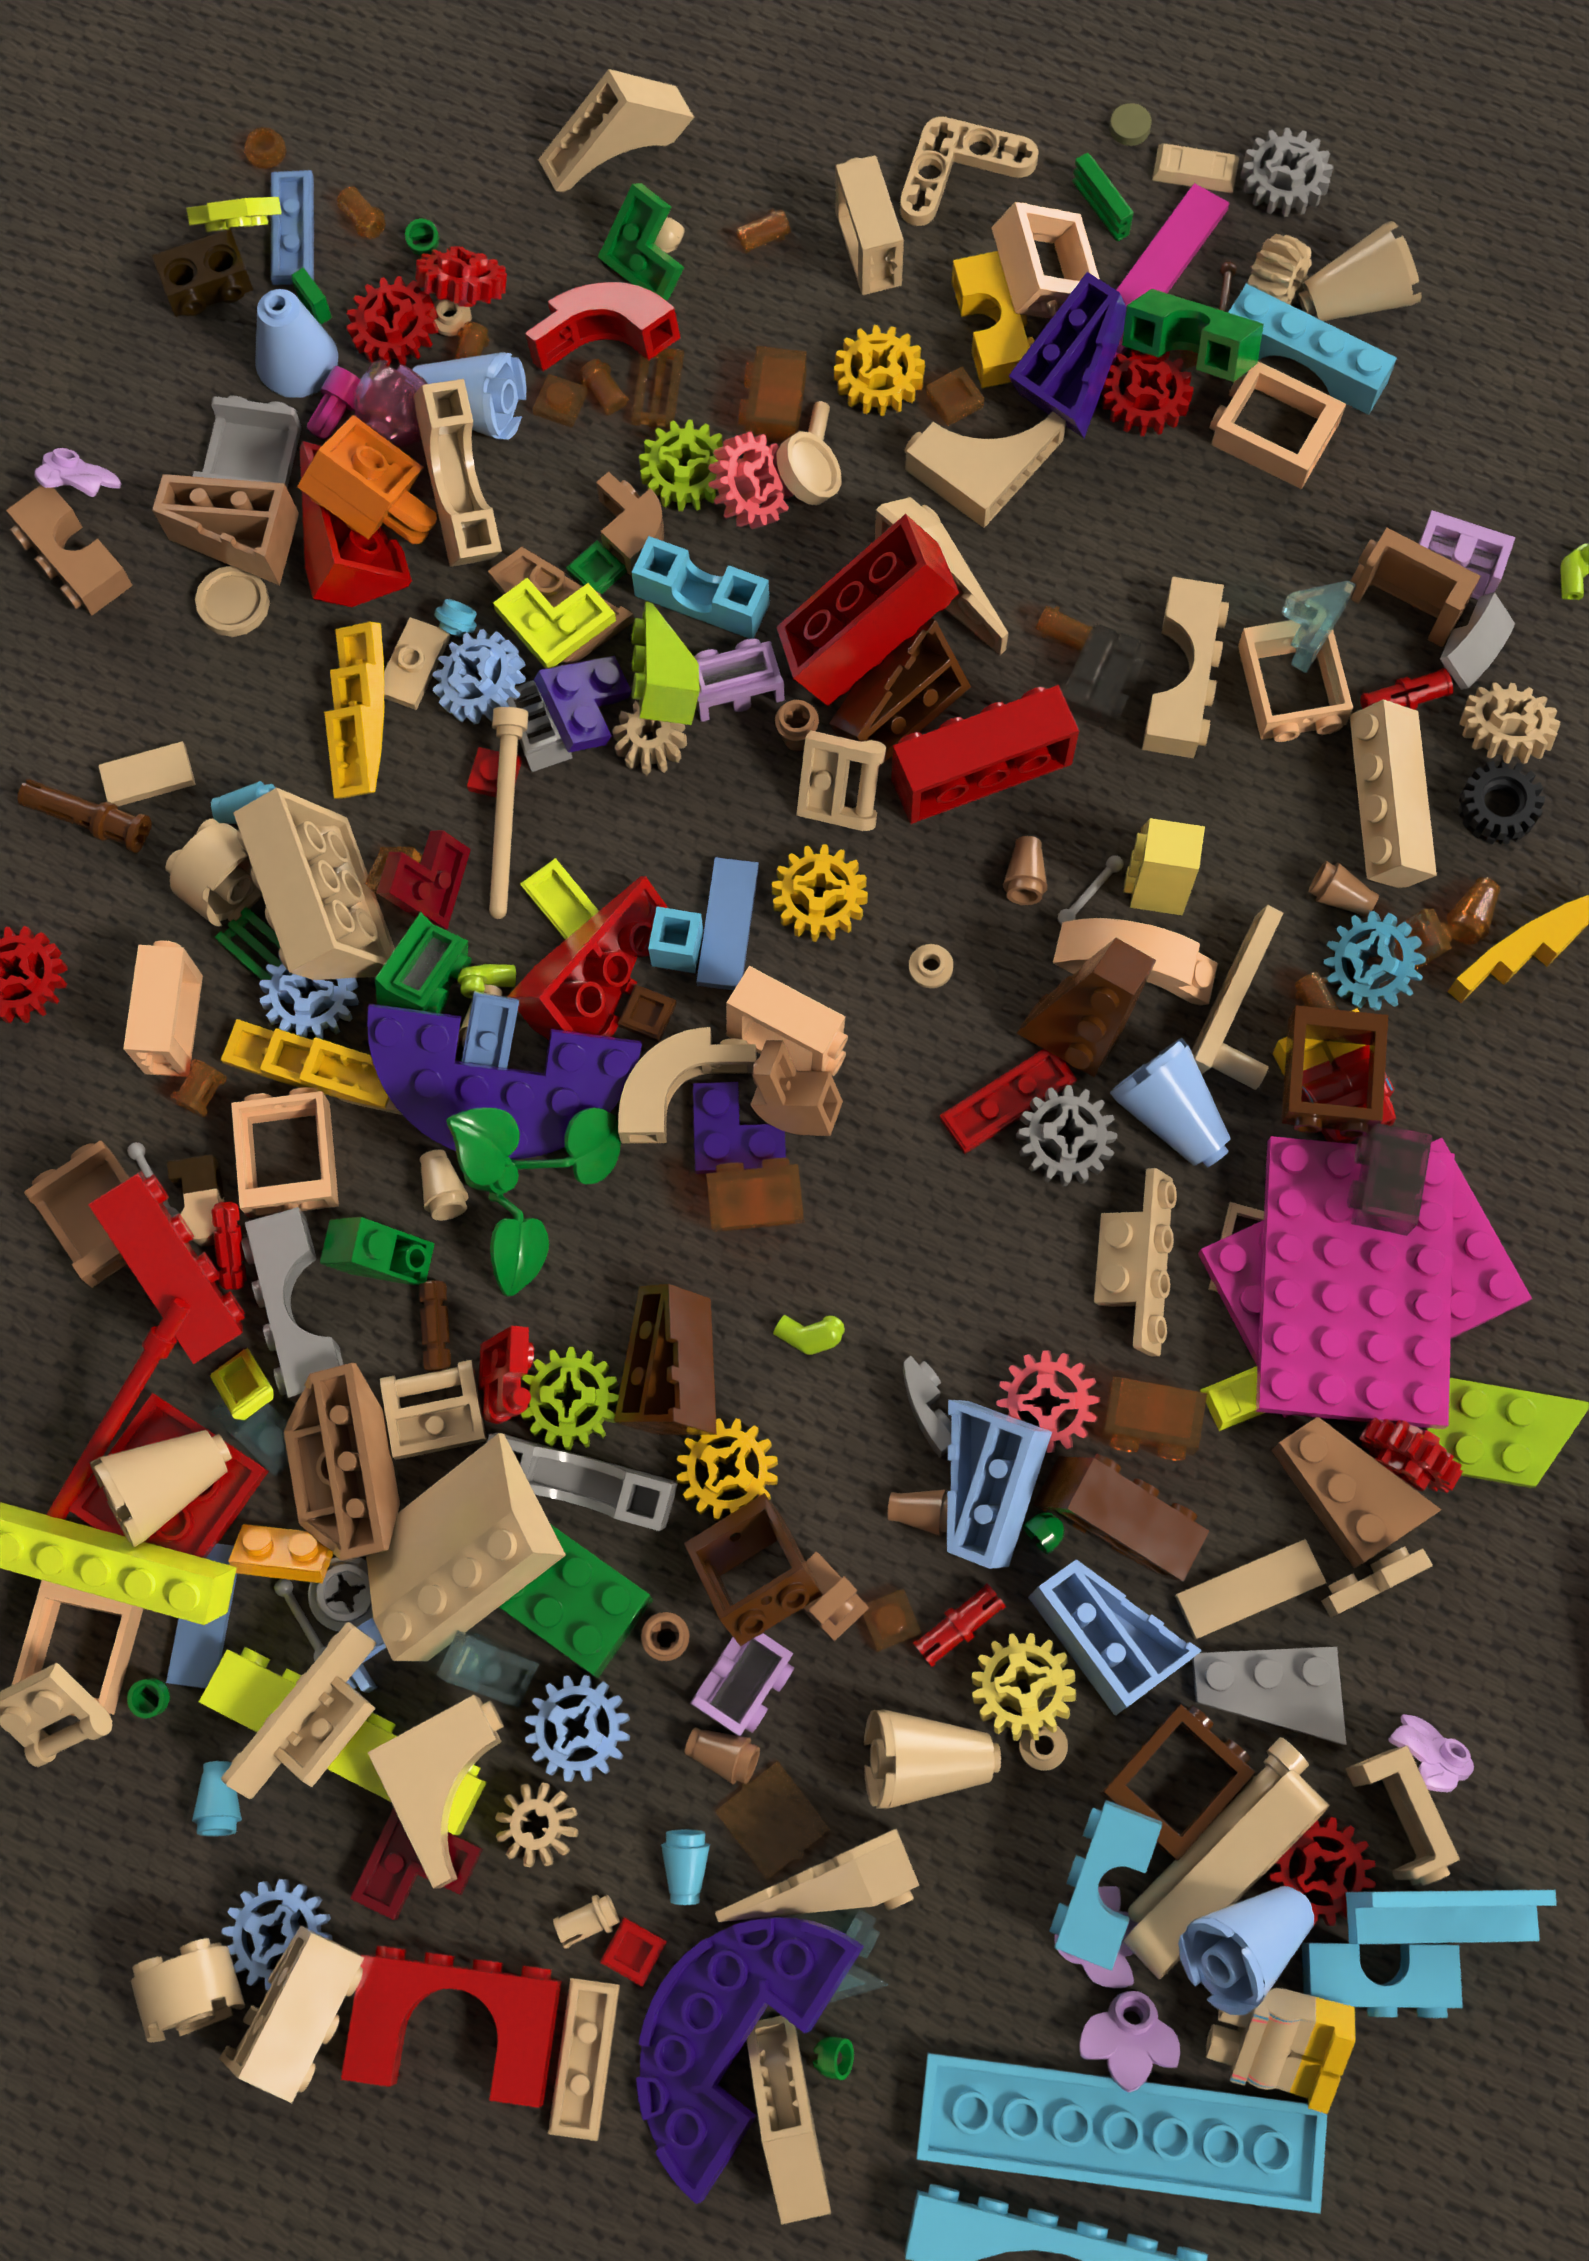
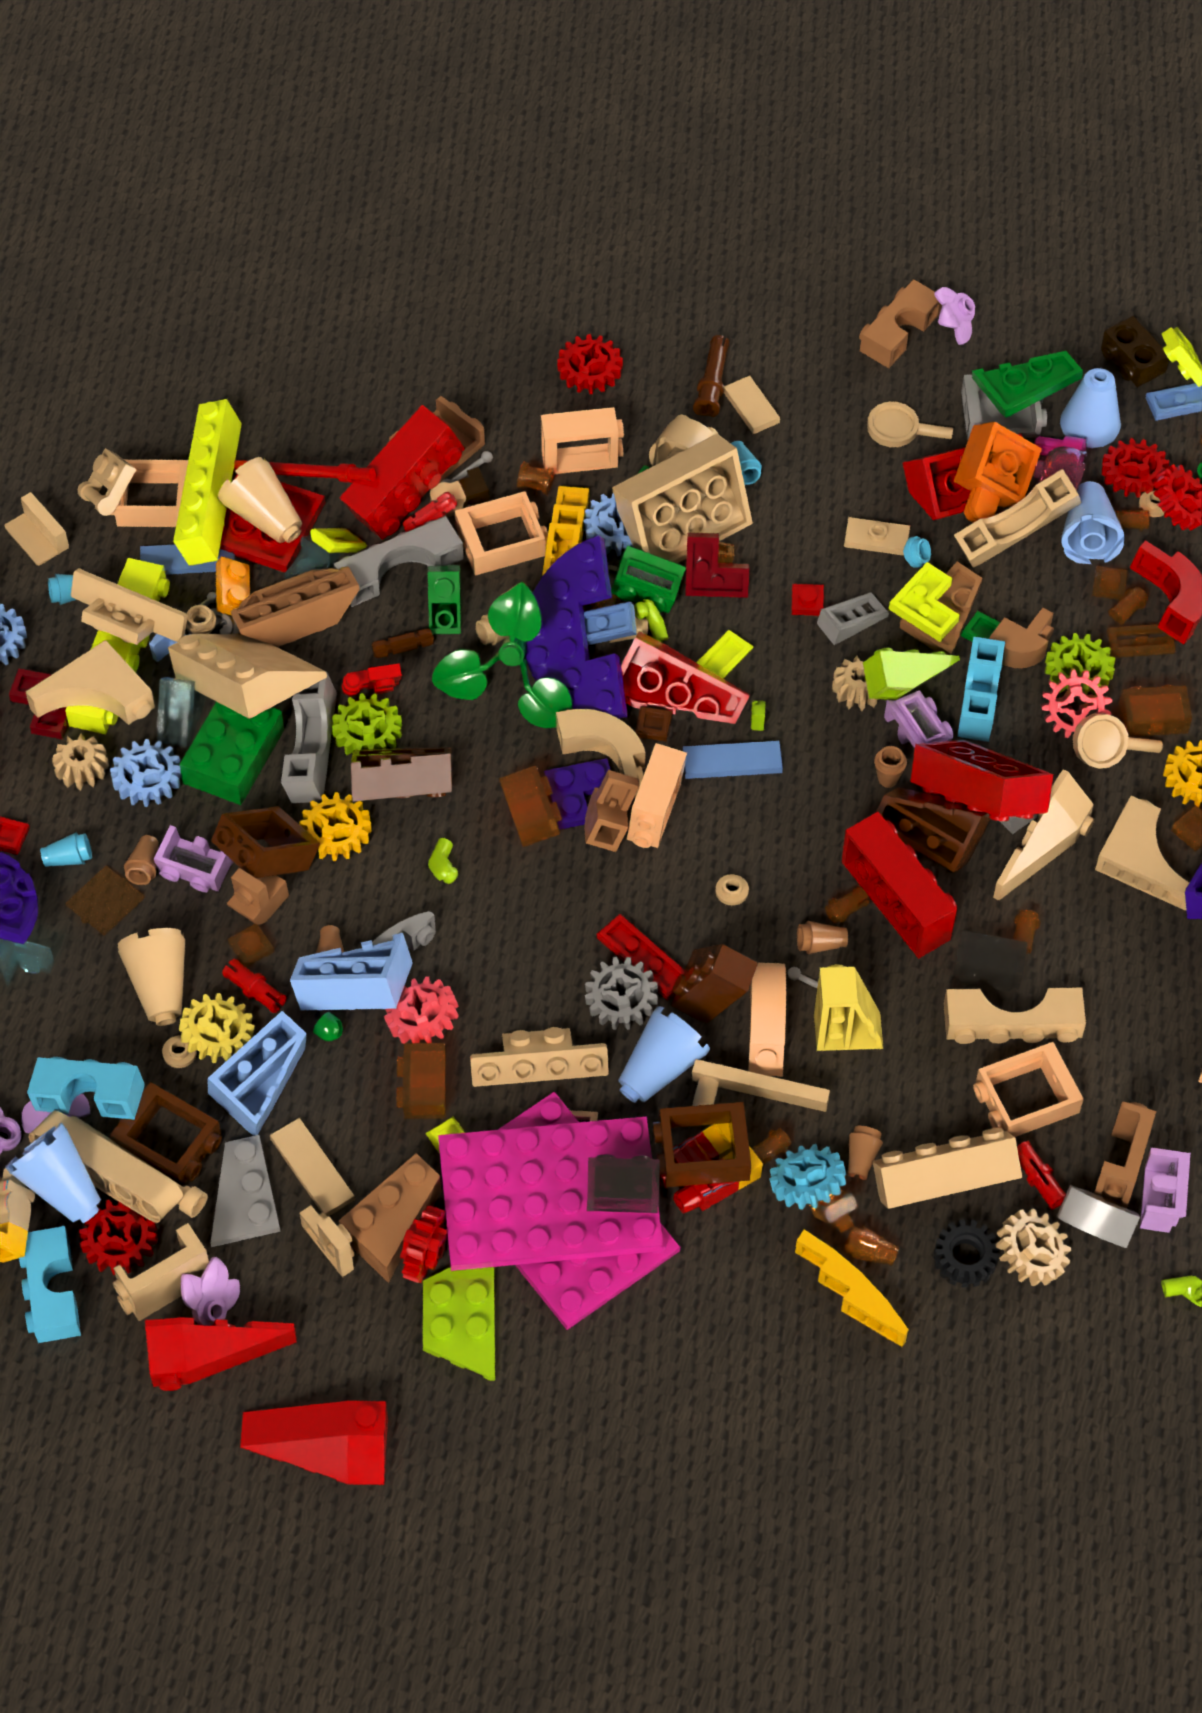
camera: 75 degrees right, 15 degrees down
(97, 1840) = (37, 531): none -> tan panel
(144, 1705) = (129, 538): green hinge -> none
(230, 521) = (945, 405): medium nougat wedge -> none
(233, 410) = (1024, 384): none -> green wing
(311, 296) = (1138, 416): green tile -> none
(327, 1598) = (200, 613): none -> tan plate
(358, 712) = (817, 510): yellow slope -> none
(433, 1424) = (334, 653): tan plate -> none
(497, 666) = (874, 571): light blue gear -> none
(509, 727) = (836, 593): tan piece -> none
(573, 699) = (872, 626): dark purple plate -> none
(586, 1921) = (27, 808): tan pin -> none
(655, 1627) = (212, 804): medium nougat cone -> none
(666, 873) = (758, 715): none -> lime tile
(675, 939) = (706, 722): medium azure brick -> none
(826, 777) = (848, 792): tan plate -> none
(836, 893) = (755, 816): yellow gear -> none
(855, 1879) = (73, 943): tan wedge -> none
(987, 837) = (840, 908): none -> clear orange pin
(1124, 1514) = (345, 1069): reddish brown wedge -> none
(1317, 613) = (1076, 1087): clear light blue slope -> none
(1445, 1916) = (96, 1315): medium azure fence -> none
(1513, 1787) = (191, 1352): none -> red wedge

